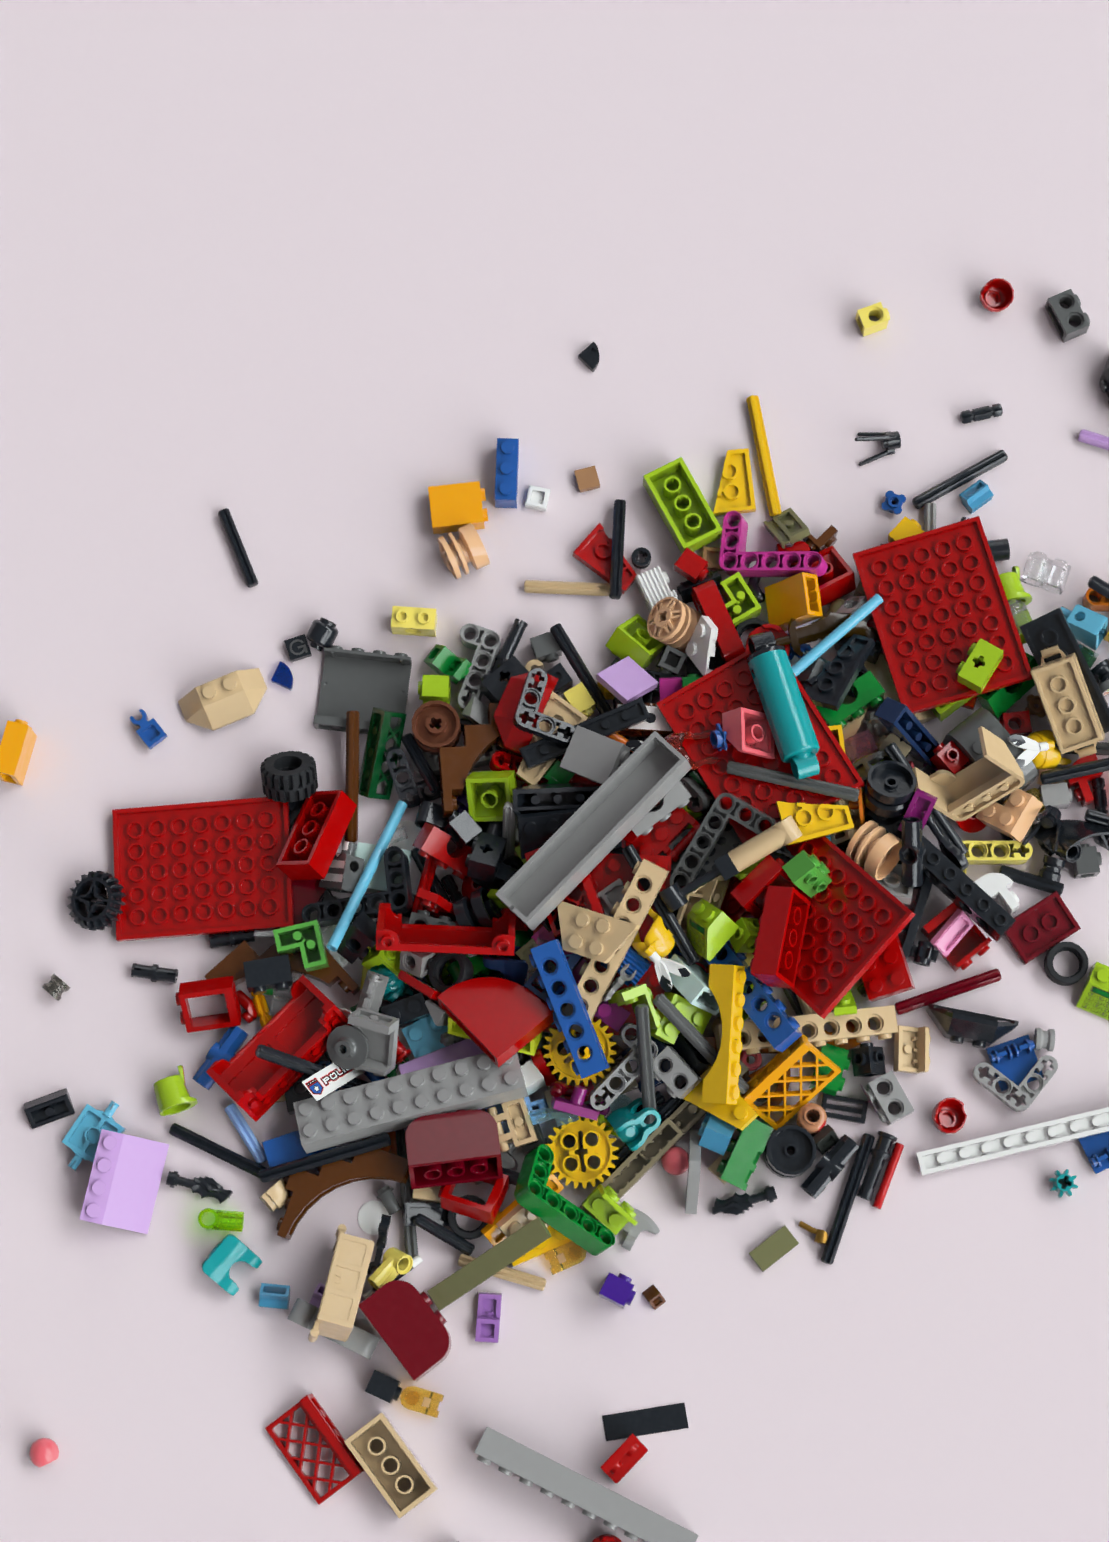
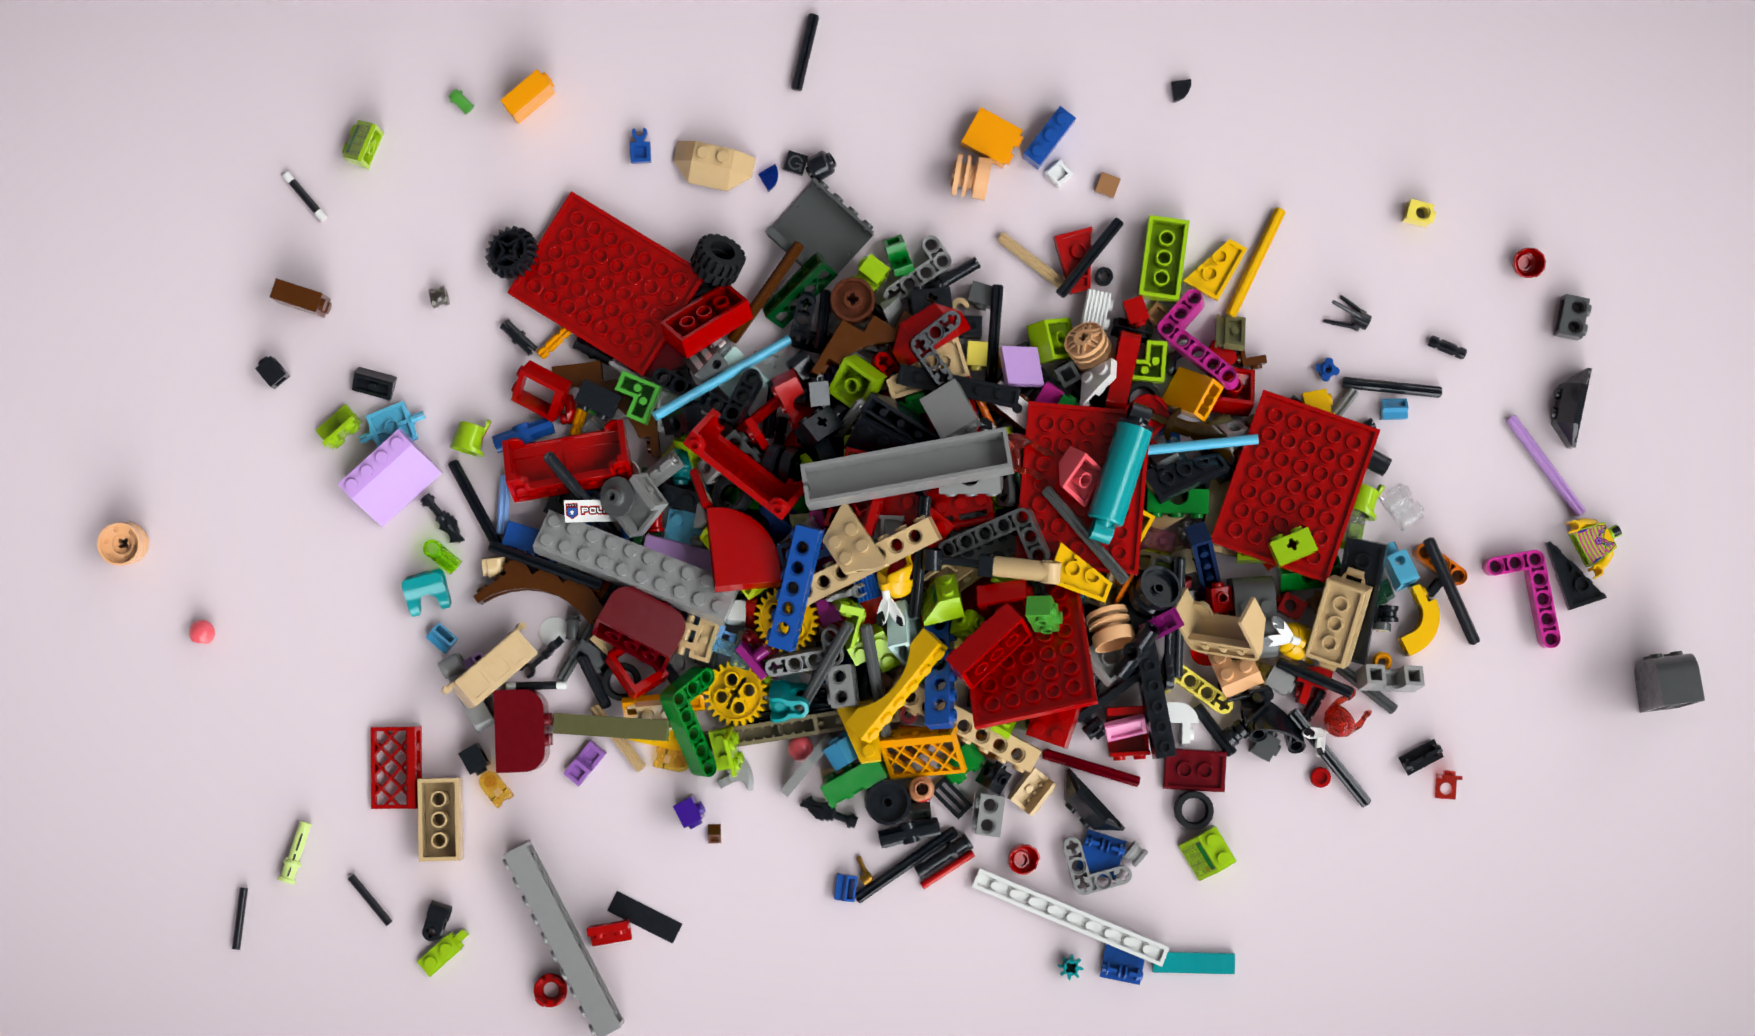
camera: 30 degrees right, 10 degrees up
(43, 1170) = (339, 427): none -> lime bracket
(190, 956) = (553, 343): none -> light orange axle
(394, 1263) = (543, 677): light yellow piece -> none
(414, 621) = (896, 204): light yellow brick -> none
(718, 738) = (1053, 463): blue plate -> none
(773, 1248) = (826, 861): olive tile -> none
(809, 1259) = (845, 887): none -> blue piece

